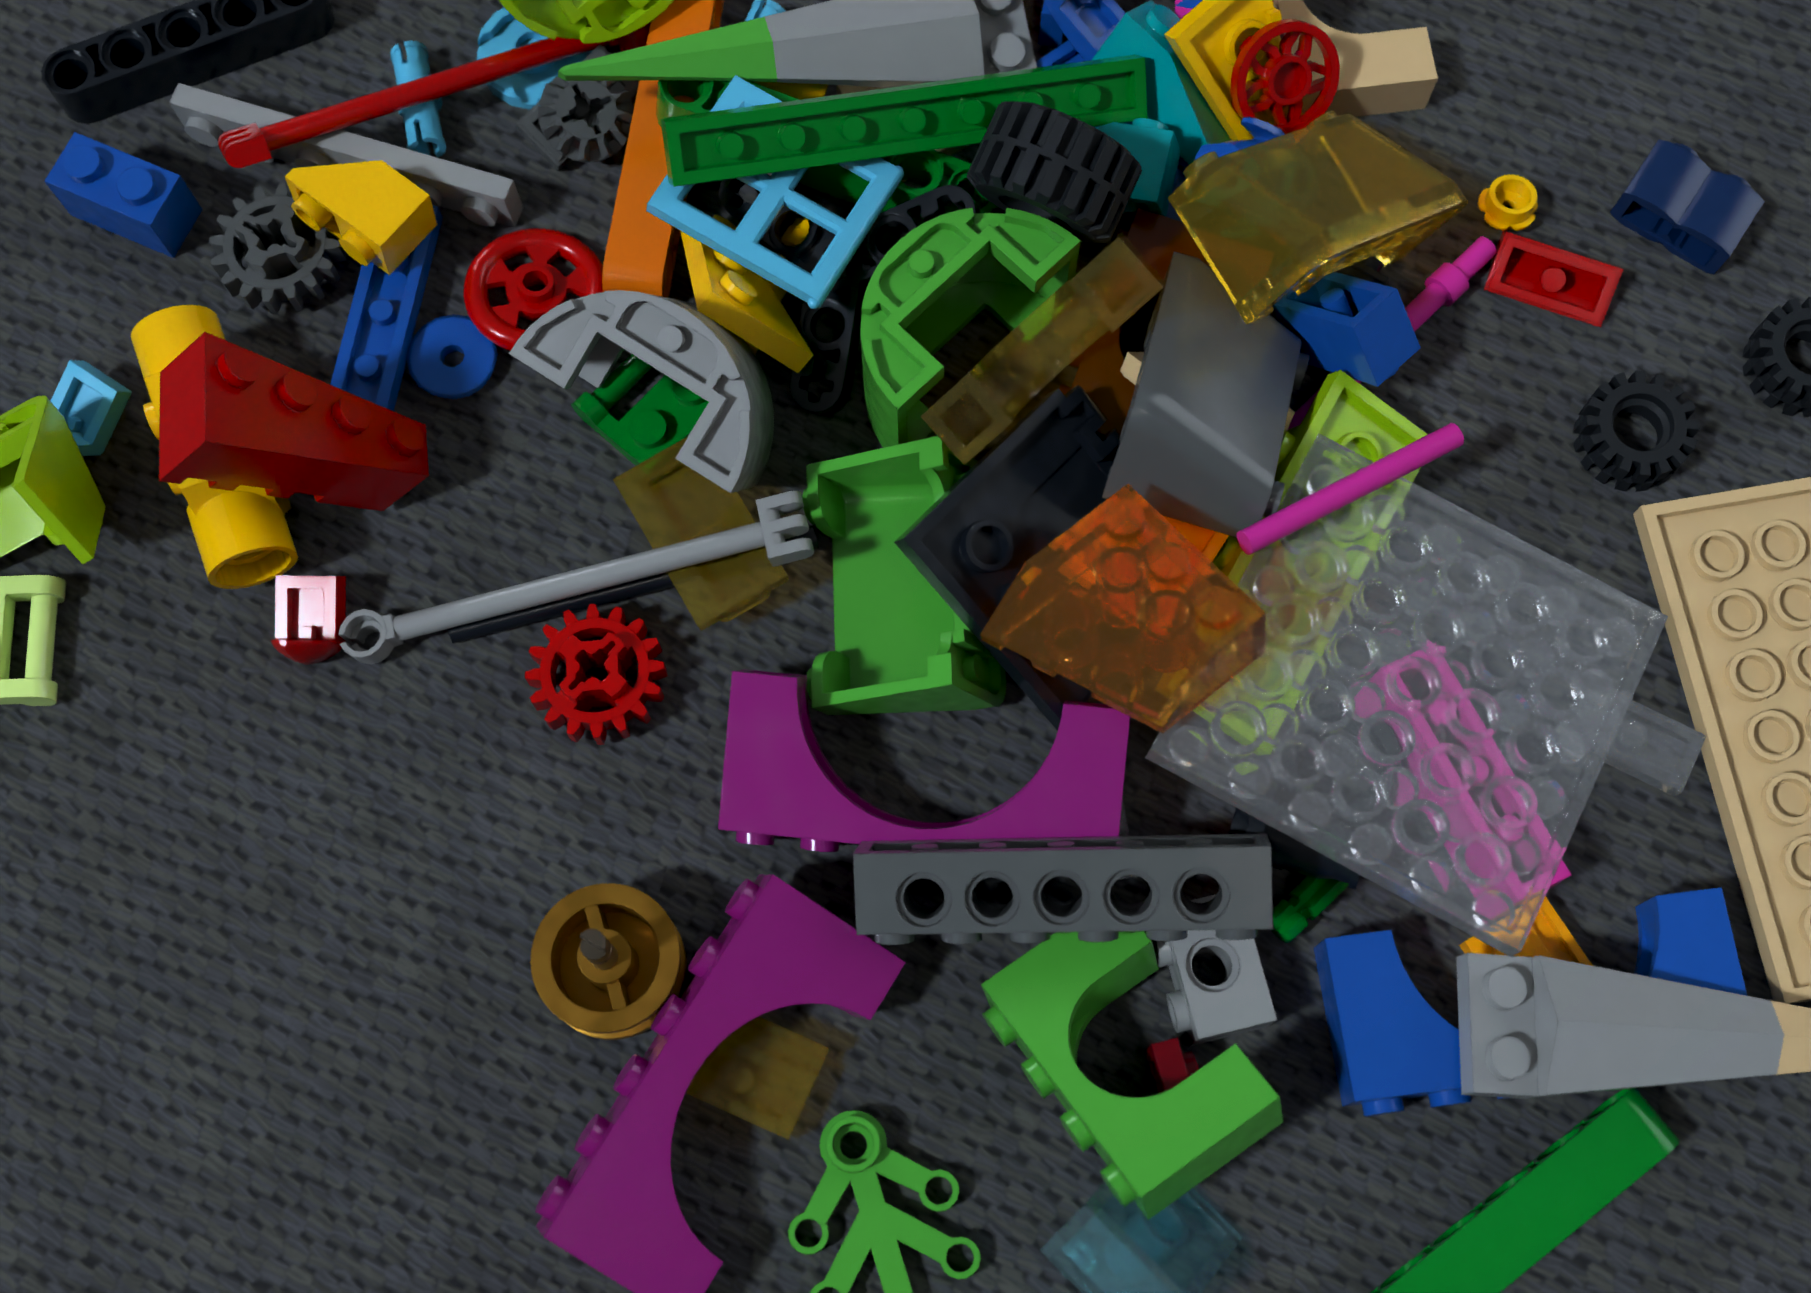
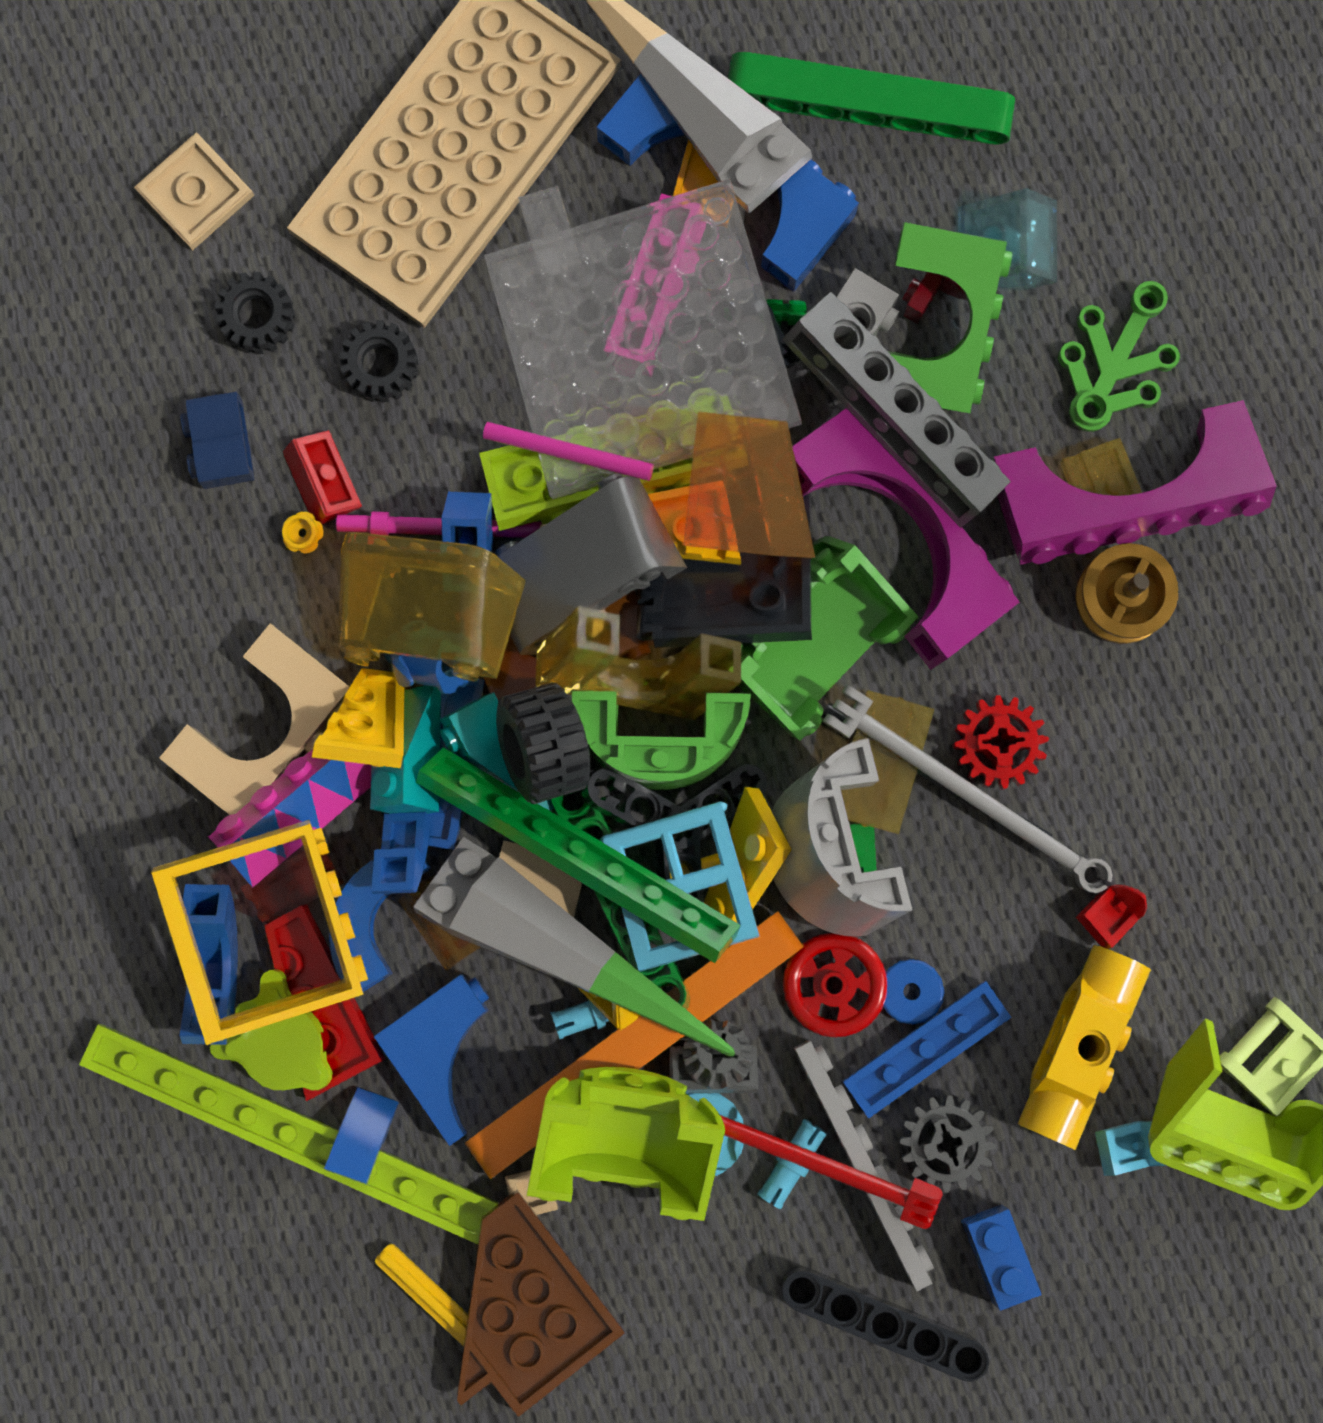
camera: 135 degrees left, 10 degrees up
(277, 429) = (1063, 997): red wedge -> none
(366, 206) = (887, 1103): yellow slope -> none
(1285, 75) = (356, 692): red wheel -> none

